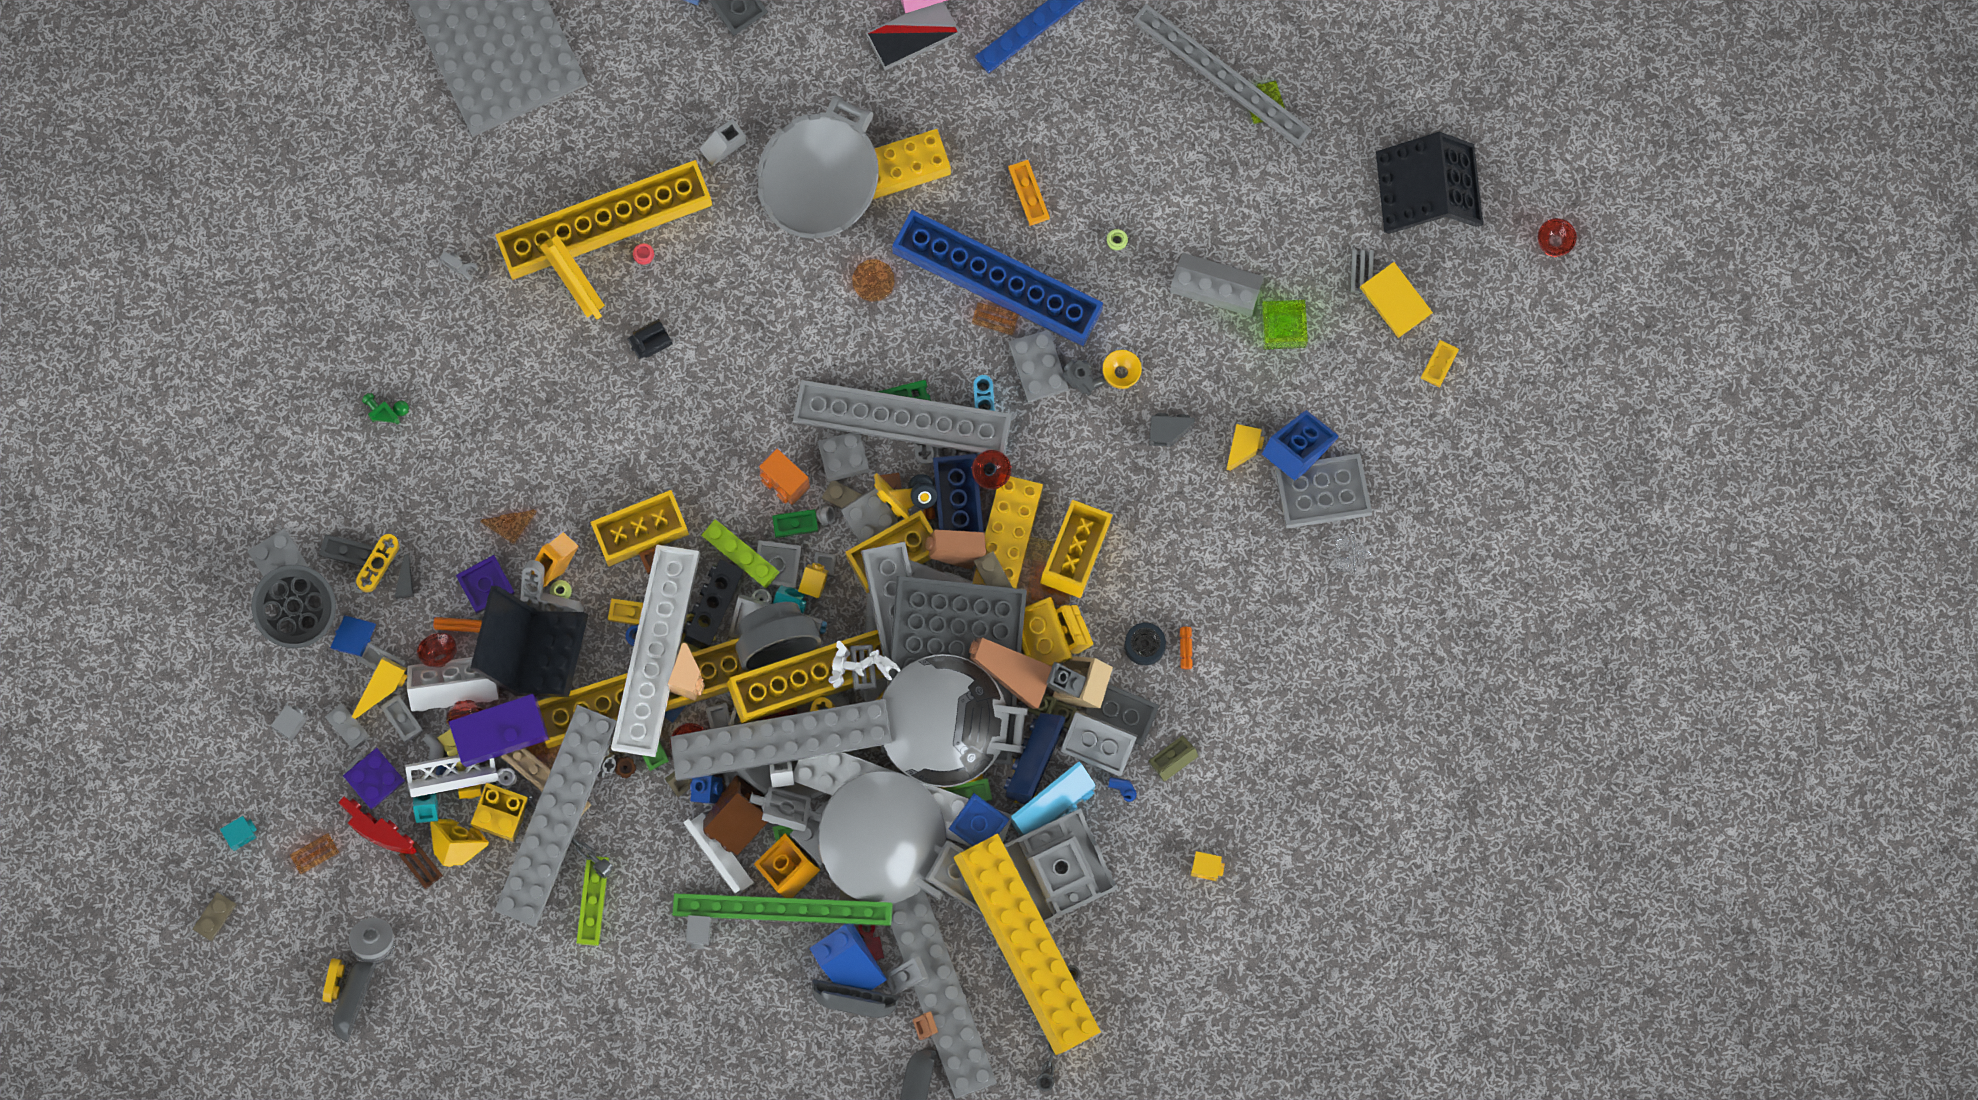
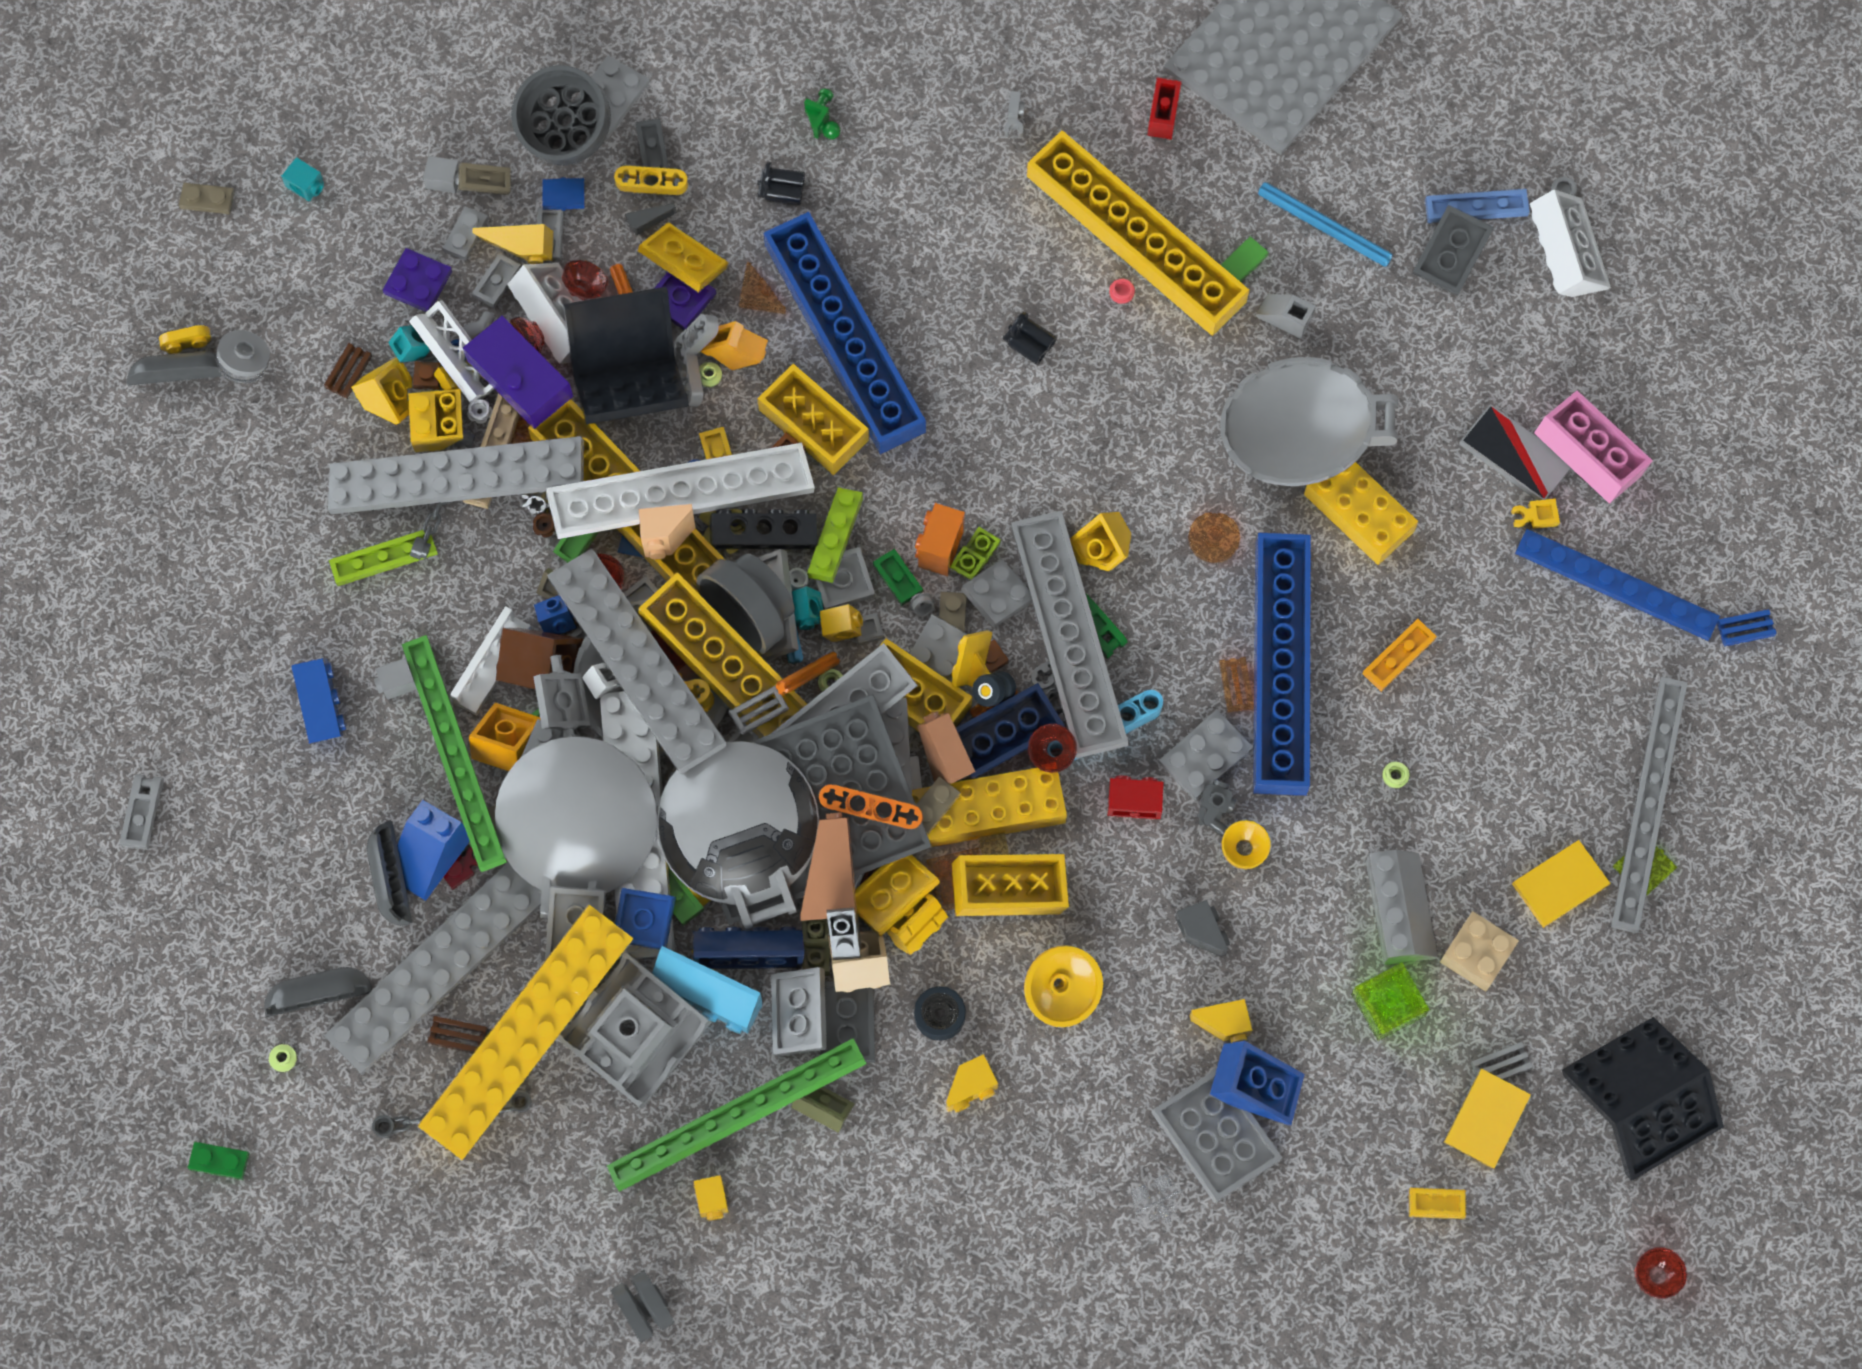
camera: 65 degrees right, 5 degrees down
(310, 691) = (484, 178): none -> dark tan plate
(331, 844) = (331, 274): clear orange tile -> none
(382, 833) = (363, 305): red slope -> none
(428, 466) = (781, 185): none -> black piece
(454, 567) = (683, 256): none -> yellow tile
(454, 806) = (424, 375): none -> dark orange plate
(510, 151) = (1164, 108): none -> red brick
(572, 276) = (1054, 225): yellow fence -> none
(578, 473) = (844, 333): none -> blue brick
(662, 80) = (1325, 224): none -> dark azure axle
(662, 152) = (1245, 259): none -> bright green tile
(688, 994) = (318, 700): none -> blue wedge
(803, 457) = (975, 554): none -> lime slope
(840, 665) = (748, 682): white piece -> none
(842, 361) = (1102, 541): none -> yellow slope
(846, 620) = (807, 673): none -> orange axle
(854, 602) = (830, 674): none -> yellowish green plate
(906, 975) = (438, 918): light grey plate -> none
(925, 1026) = (391, 965): nougat tile -> none
(968, 40) = (1540, 513): none -> yellow plate
(976, 615) = (870, 809): none -> orange beam
(1010, 985) = (457, 1024): none -> reddish brown tile
(1049, 430) = (1135, 797): none -> red brick
(1125, 787) = (763, 1065): blue arm -> none
(1155, 821) = (736, 1115): none -> bright green plate
(1175, 542) = (1077, 992): none -> yellow dish
(1186, 647) = (952, 1063): orange axle -> none
(1206, 645) = (971, 1082): none -> yellow slope
(1250, 165) = (1561, 883): none -> yellow tile
(1267, 947) = (642, 1306): none -> dark grey wheel
(1275, 245) = (1479, 951): none -> tan brick

